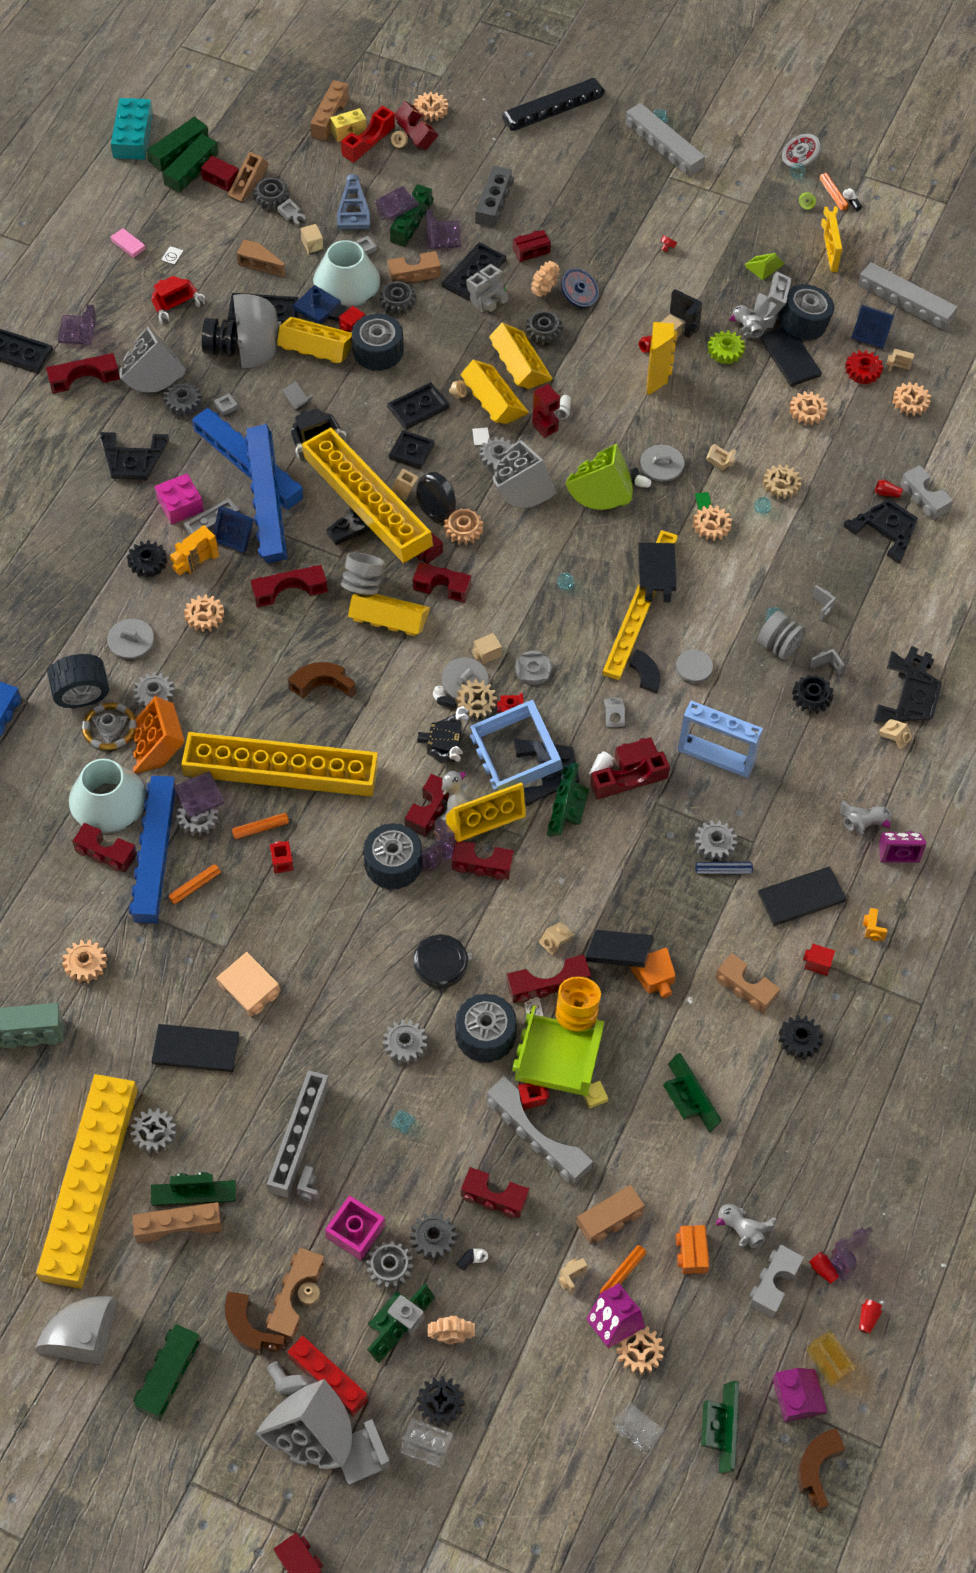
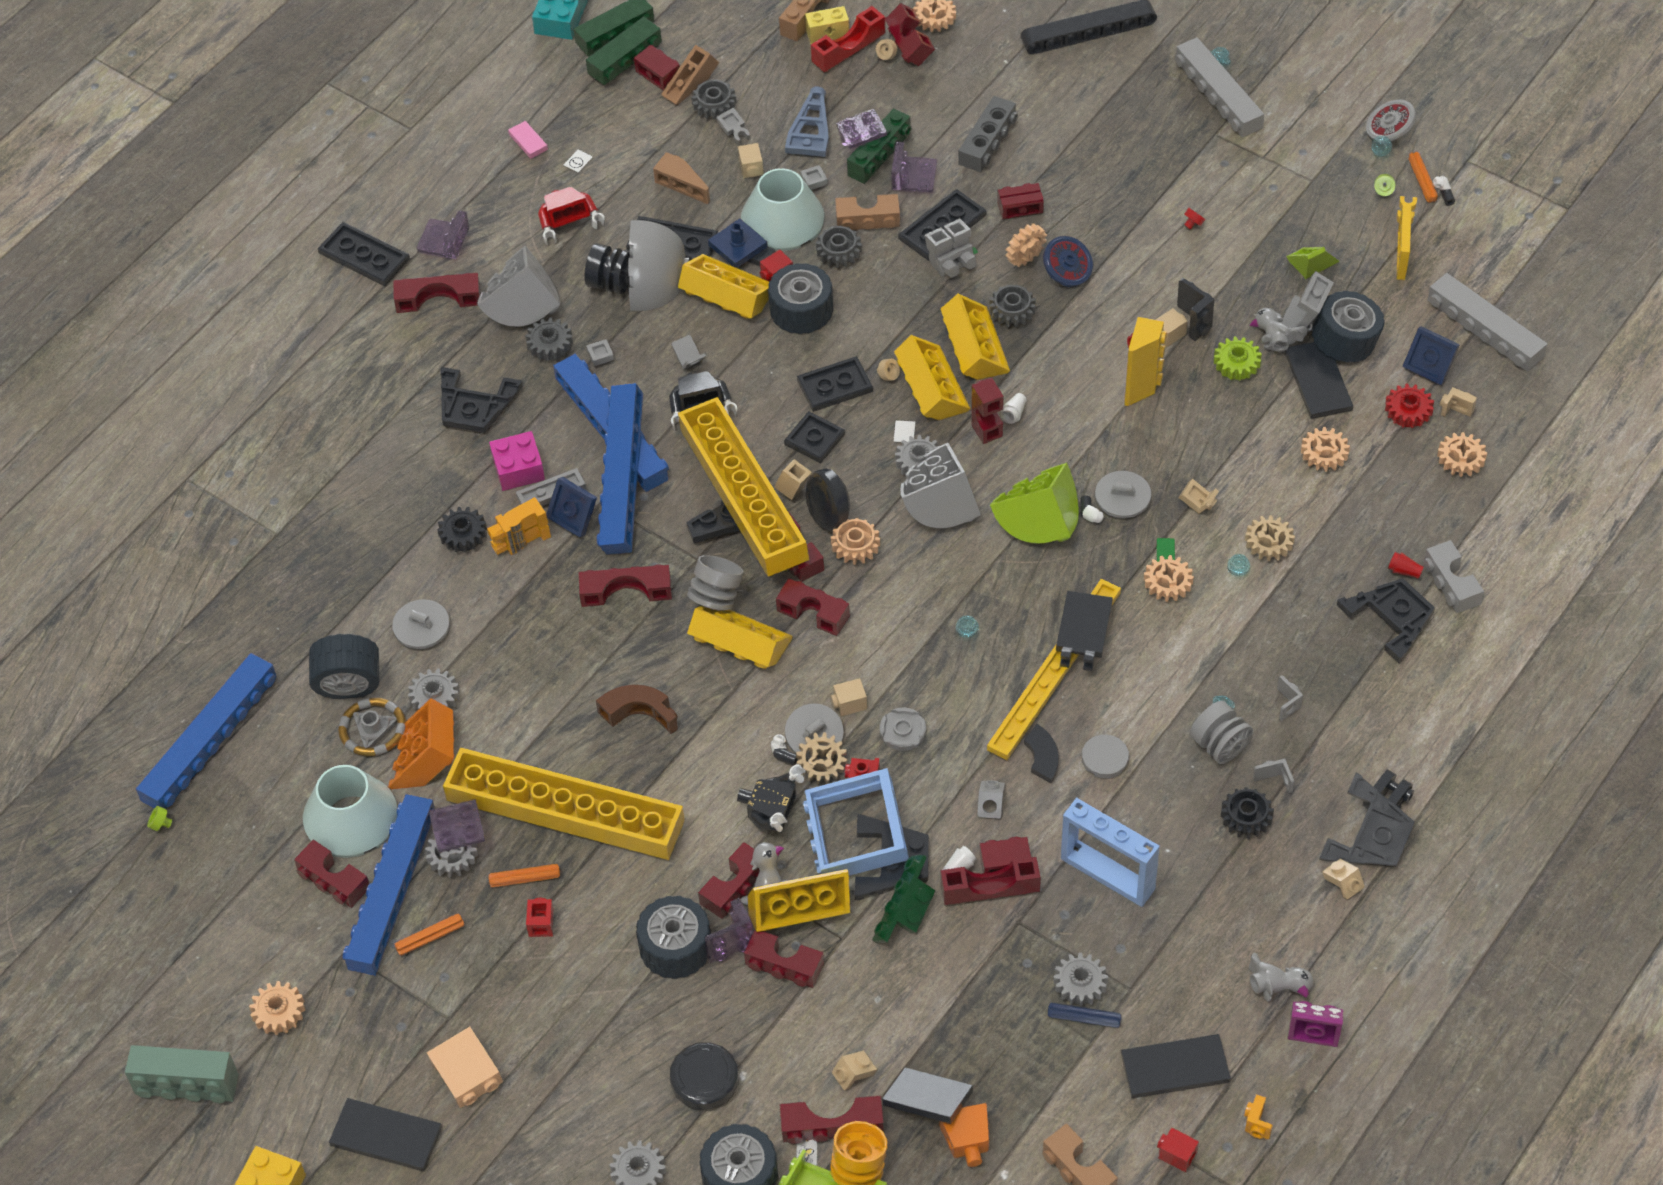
camera: 15 degrees right, 5 degrees down
(204, 613) = (513, 604): light nougat gear -> none

